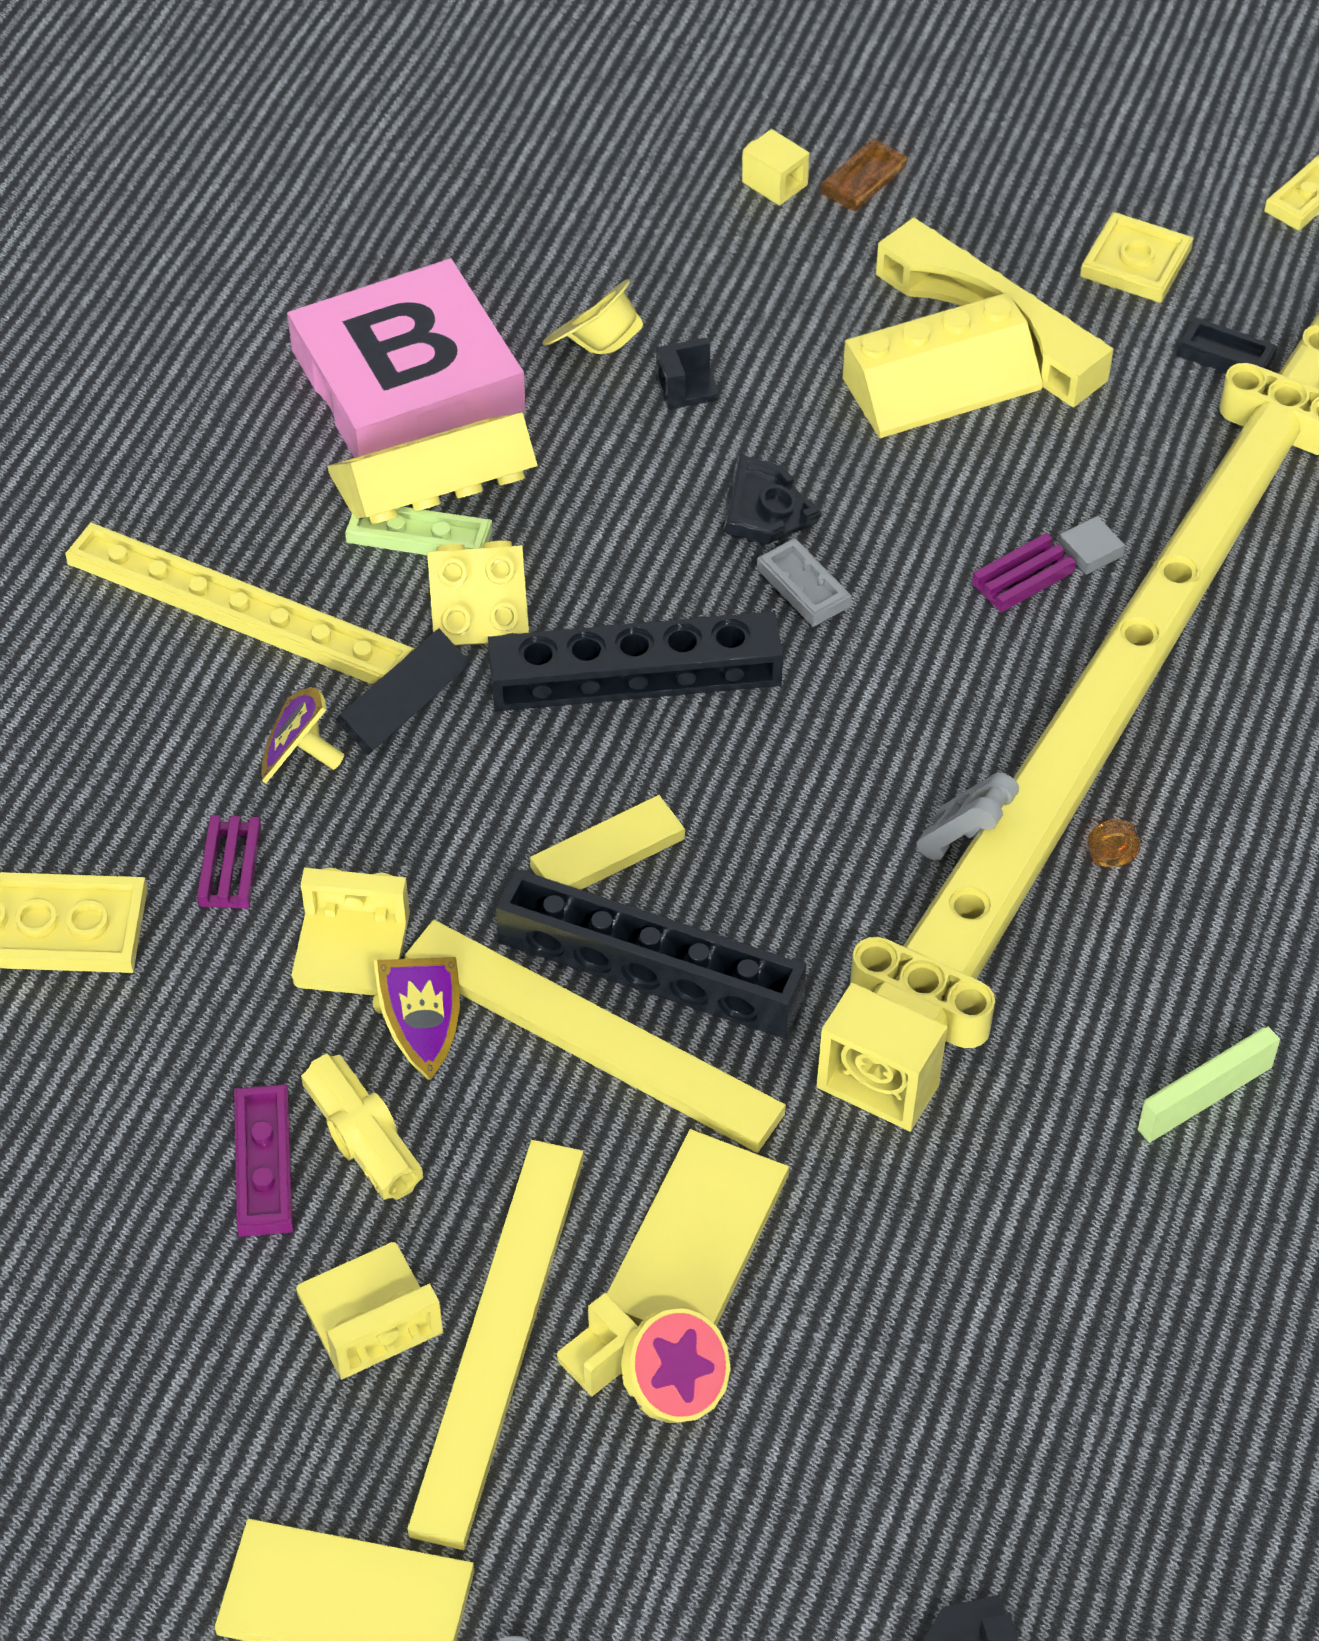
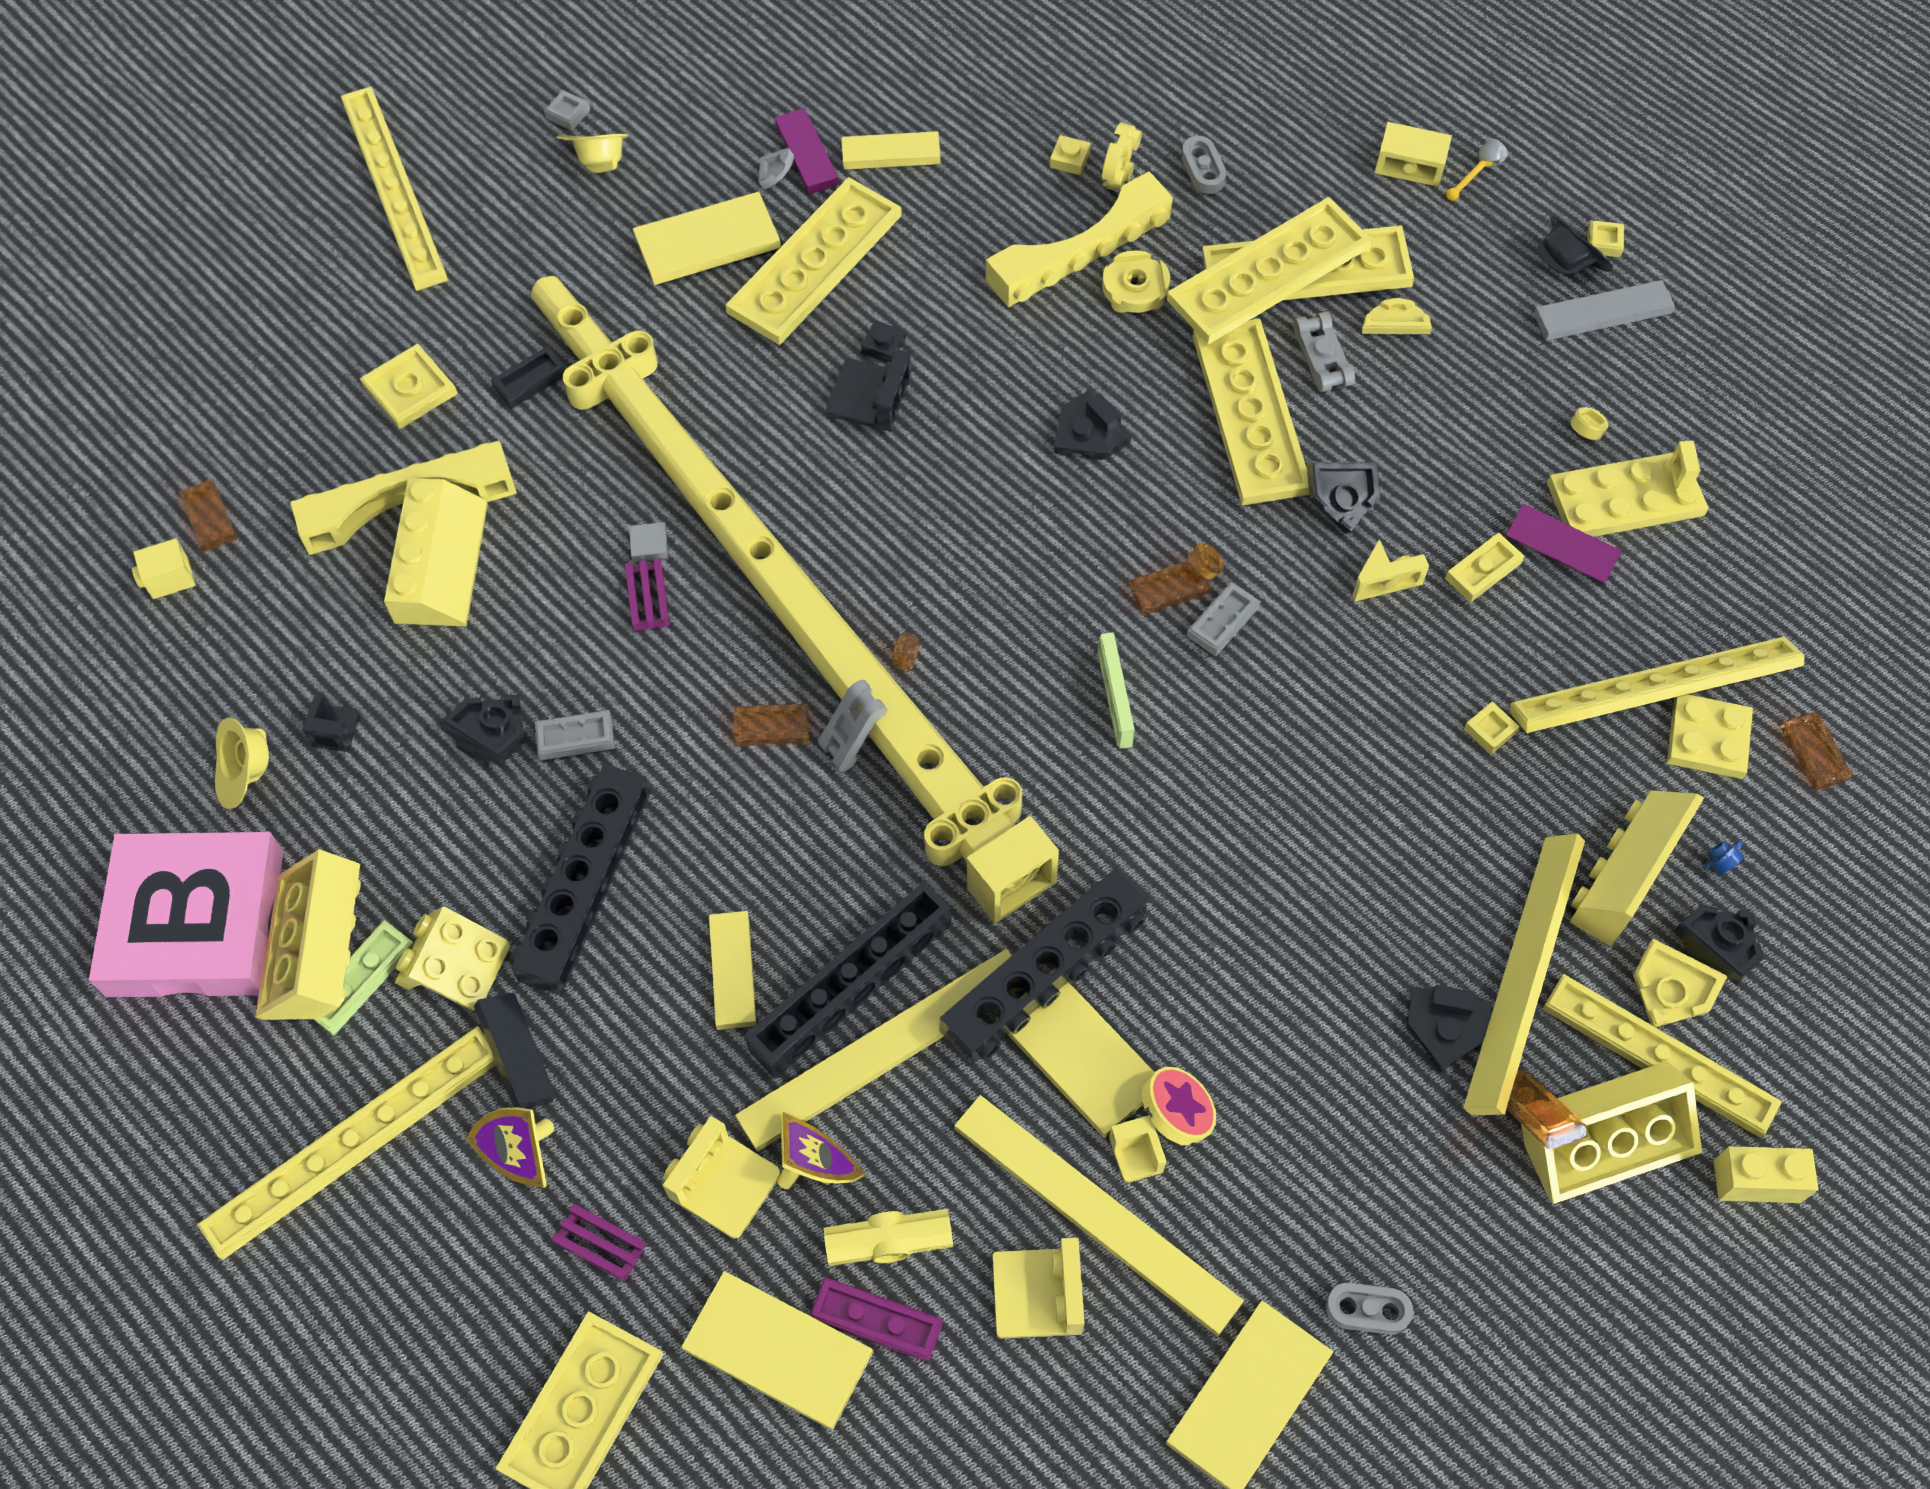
camera: 65 degrees left, 10 degrees up
(181, 1074) = (778, 1350): none -> light yellow tile
(762, 1119) = (1110, 896): none -> black brick
(934, 756) = (771, 724): none -> clear orange tile

